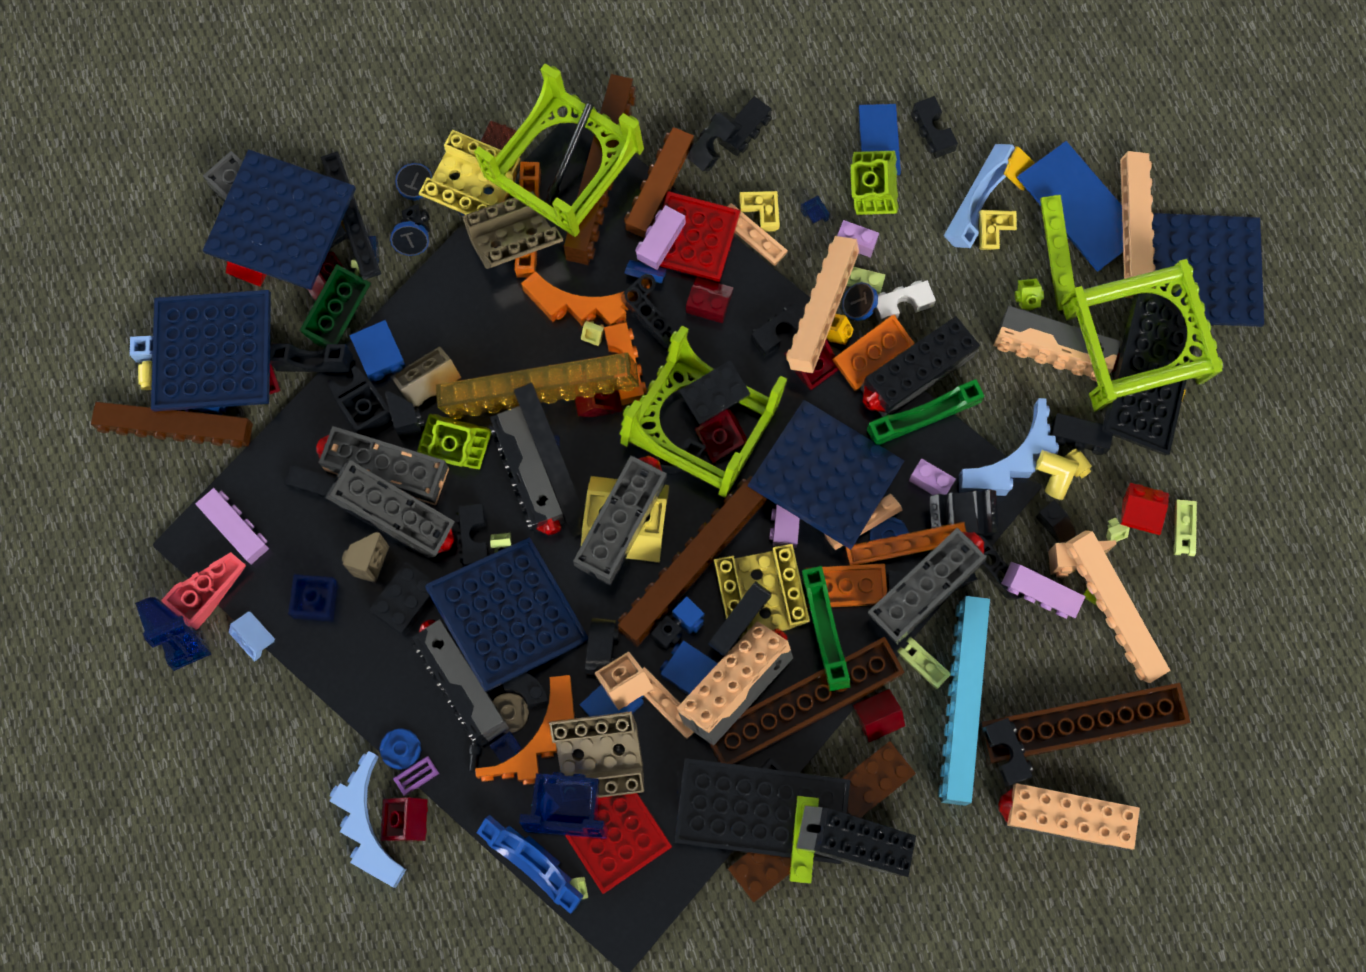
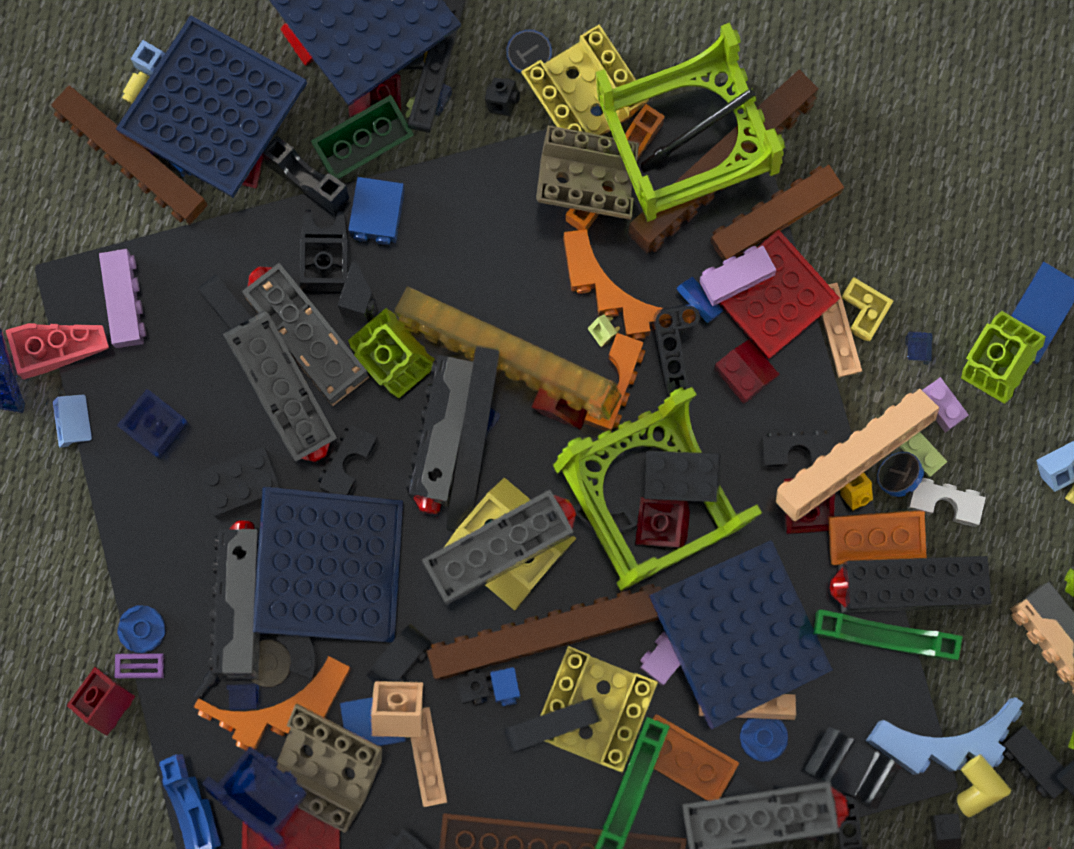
camera: 35 degrees right, 5 degrees up
(357, 826) = (64, 647): light blue arch -> none
(366, 557) = (227, 418): dark tan slope -> none
(409, 238) = (483, 112): black tile -> none
(420, 378) = (405, 265): dark tan slope -> none
(497, 135) = (644, 59): clear red piece -> none
(500, 540) = (371, 485): yellowish green tile -> none
(686, 667) = (472, 742): blue brick -> none
(703, 152) = (844, 210): black arch -> none
(735, 682) = (507, 785): light nougat piece -> none
(752, 118) = (908, 210): black brick -> none
(900, 544) = (772, 757): orange tile -> none
(931, 478) = (847, 709): lavender brick -> none
(1084, 465) = (1016, 795): light yellow brick -> none

